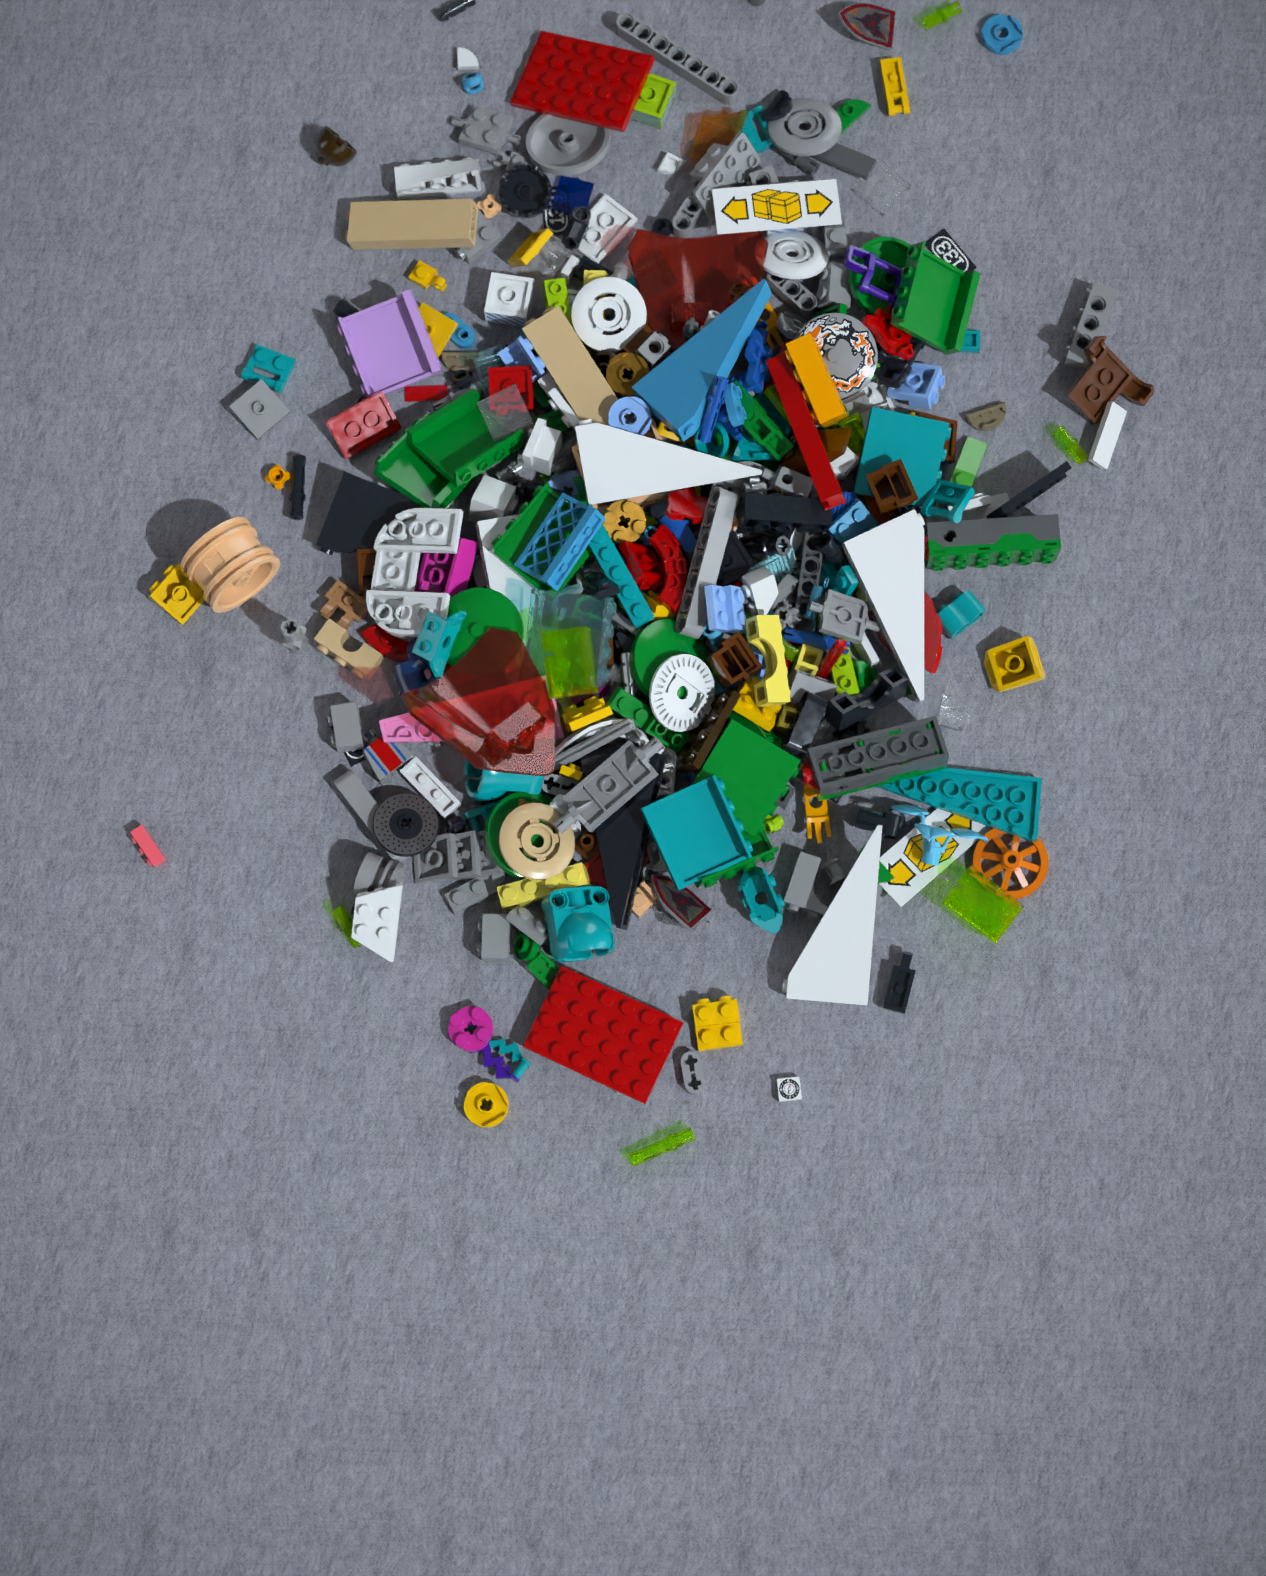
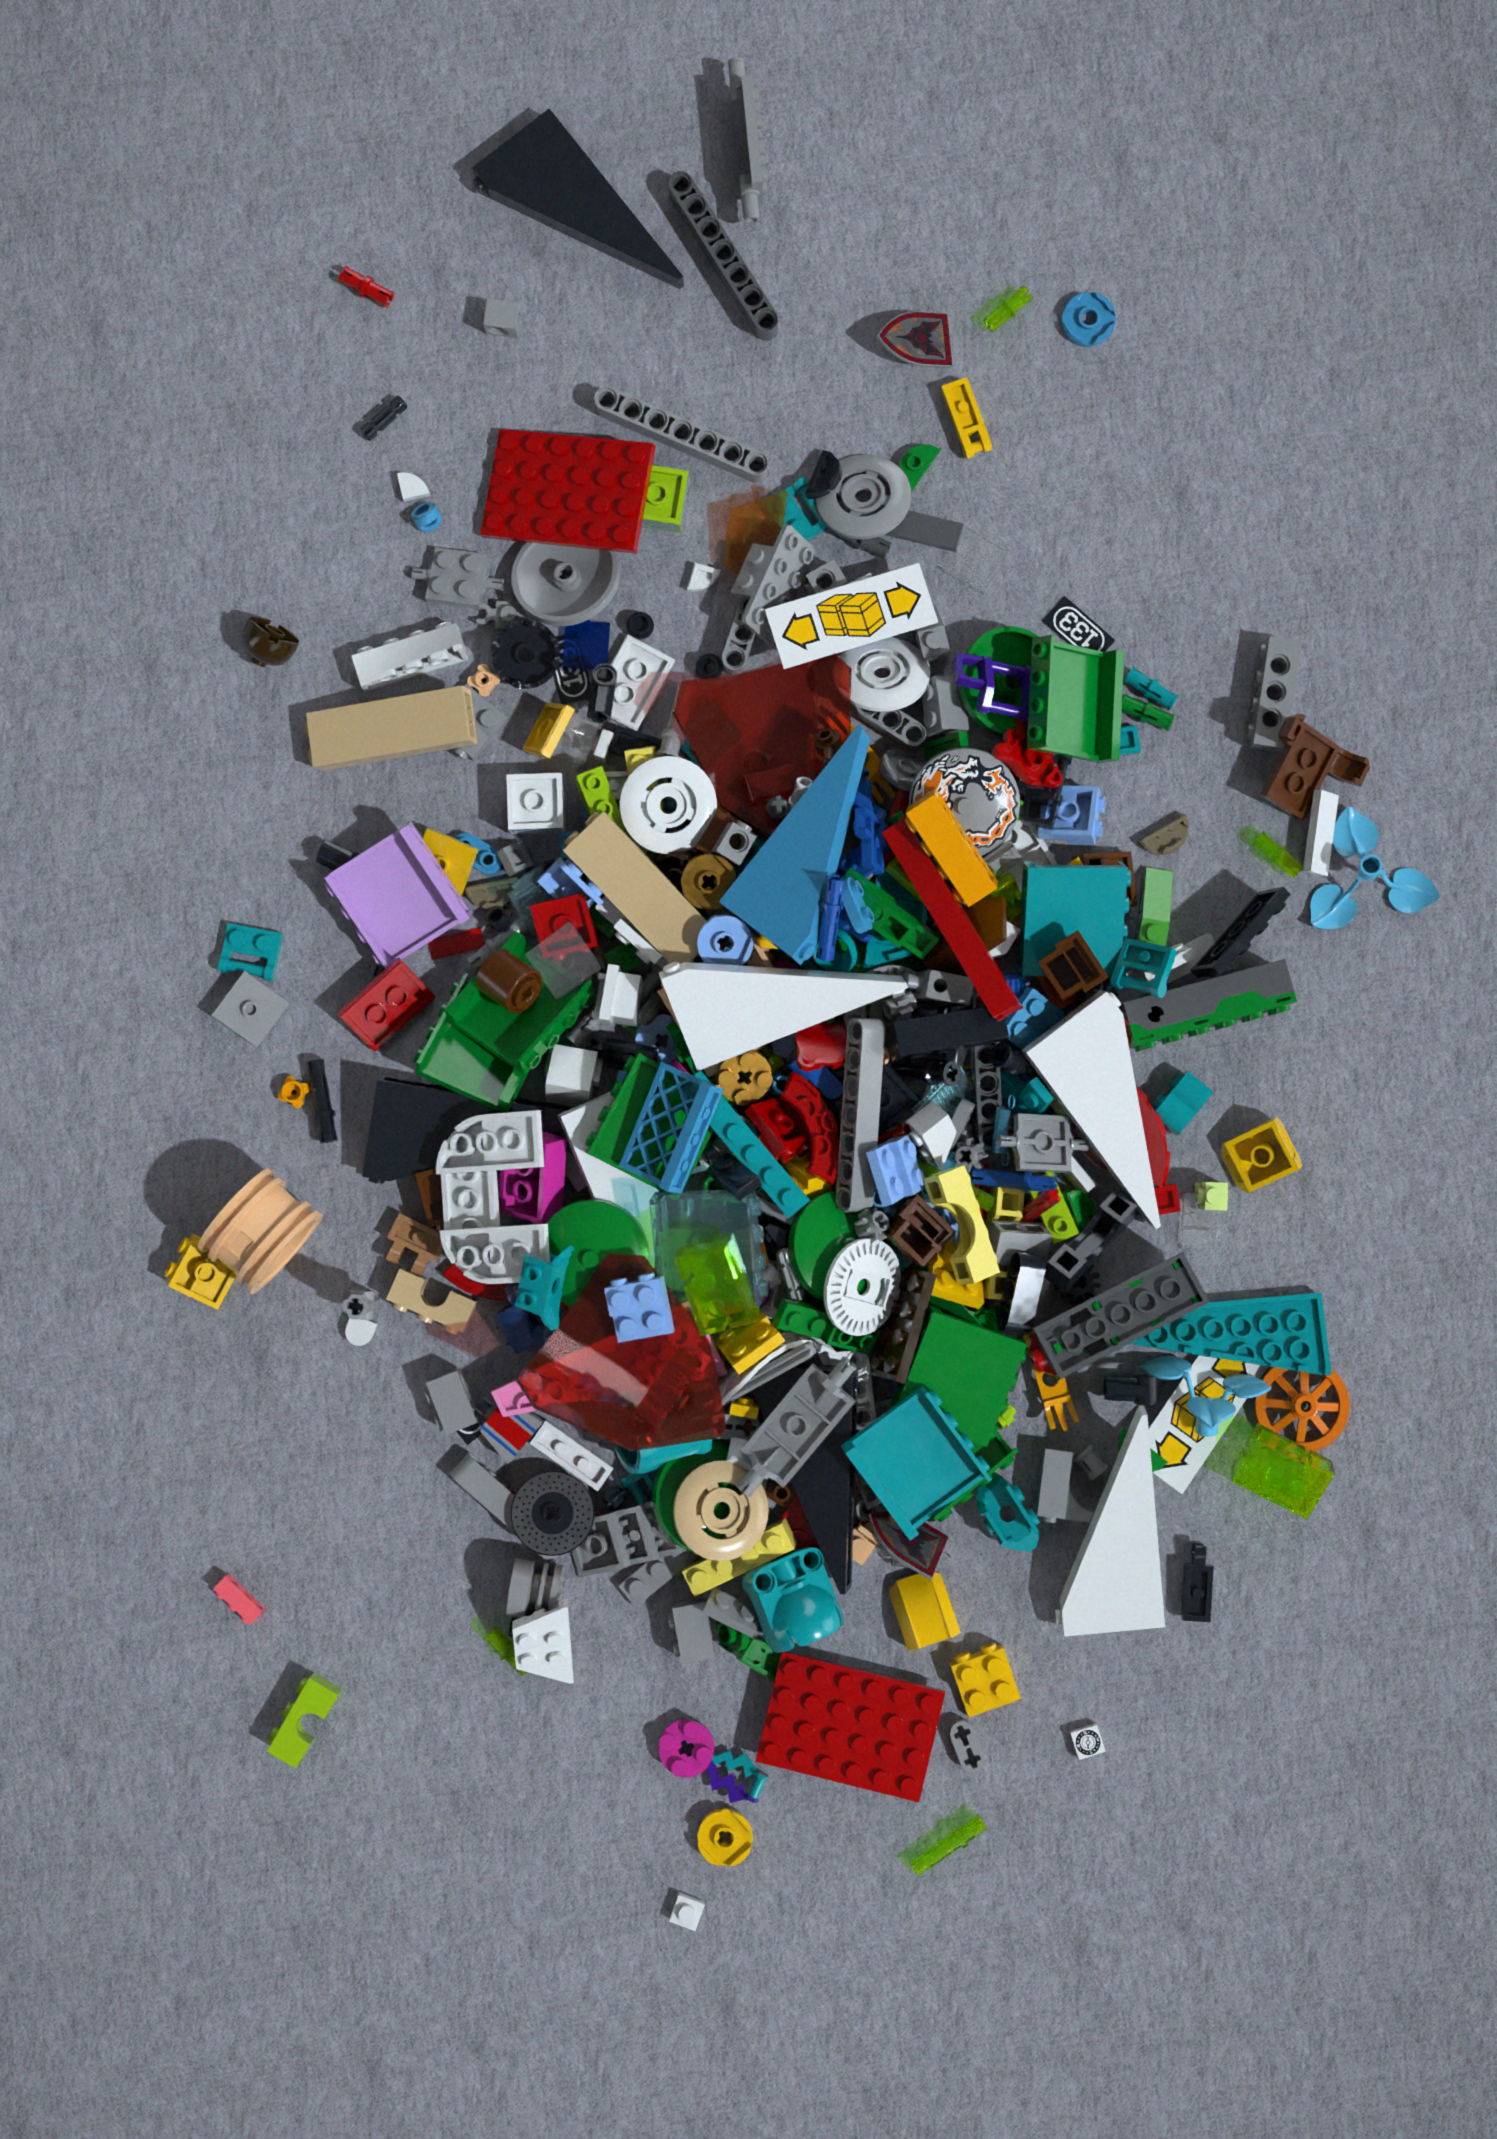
camera: 15 degrees left, 10 degrees up
(187, 930) = (290, 1740): none -> lime arch
(288, 663) = (360, 1331): none -> white tile
(425, 275) = (422, 789): yellow plate -> none
(443, 1158) = (687, 1911): none -> white plate
(460, 418) = (509, 981): none -> reddish brown piece
(484, 337) = (515, 858): none -> light grey plate
(506, 669) = (639, 1307): none -> light blue plate
(616, 189) = (640, 625): none -> black plate
(680, 959) = (923, 1610): none -> yellow slope
(699, 647) = (872, 1225): none -> light grey gear
(933, 684) = (1167, 1199): none -> red plate
(969, 688) = (1211, 1195): none -> yellowish green brick
(989, 322) = (1147, 712): none -> green pin
(996, 306) = (1151, 688): none -> teal pin
(1136, 445) = (1357, 835): none -> medium azure plant

